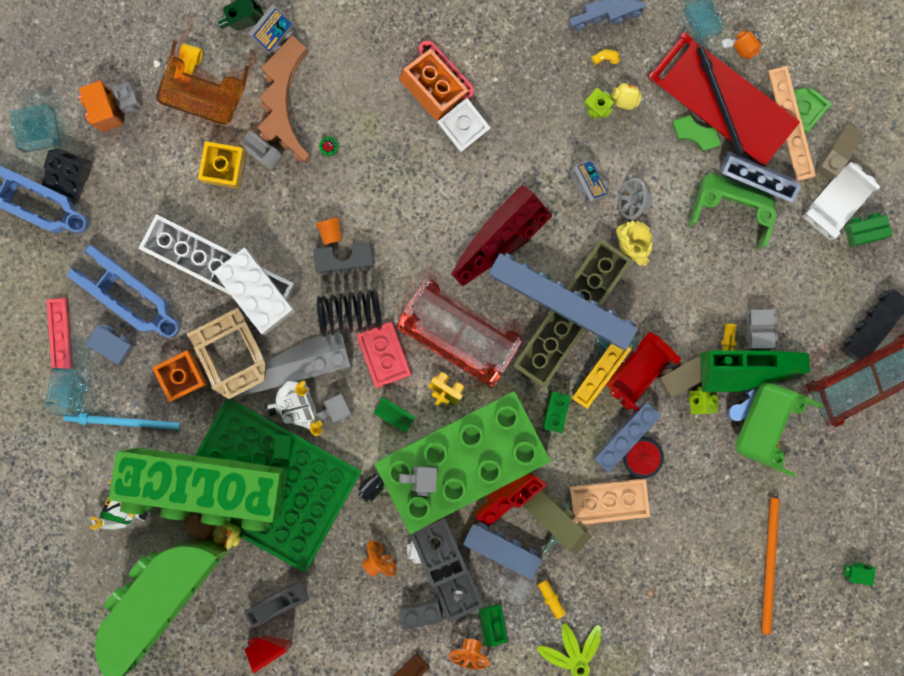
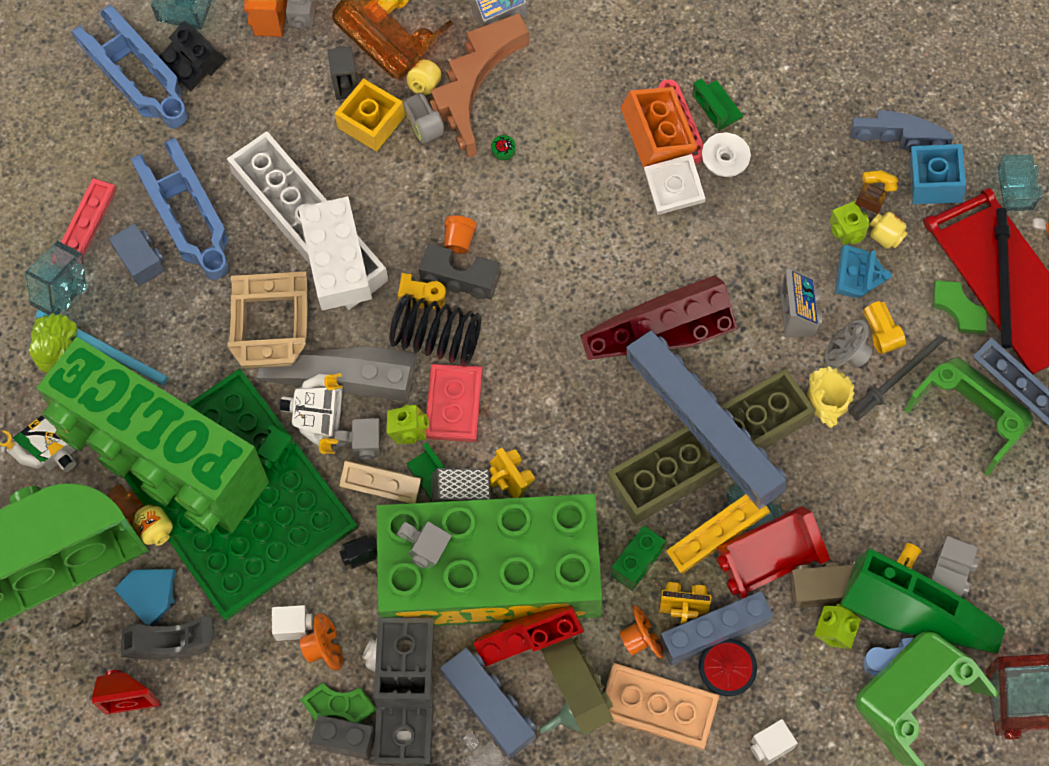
camera: 25 degrees right, 20 degrees down
(86, 436) = (50, 339): none -> lime hair
(180, 376) = (197, 320): orange brick -> none
(186, 140) = (342, 71): none -> dark grey brick
(246, 116) = (424, 77): none -> light yellow head
(246, 576) = (148, 593): none -> dark azure slope
(324, 287) = (431, 291): none -> yellow leg
(351, 555) = (291, 622): none -> white brick
(361, 387) = (407, 424): none -> lime brick
(362, 434) = (380, 482): none -> tan plate
(399, 594) = (351, 706): none -> bright green tile
(419, 417) = (460, 484): none -> flat silver panel
(458, 334) = (555, 413): windscreen -> none
(465, 45) = (716, 103): none -> green panel
(494, 77) = (728, 146): none -> white dish
(579, 465) = (637, 637): none -> orange wheel
(601, 430) = (685, 604): none -> yellow hips
(606, 78) = (871, 198): none -> reddish brown tile
(618, 136) = (859, 272): none -> dark azure slope
(645, 38) = (937, 174): none -> dark azure brick
(655, 177) = (885, 334): none -> yellow piece
(664, 228) = (874, 396): none -> dark grey piece
(692, 495) = (773, 742): none -> white brick

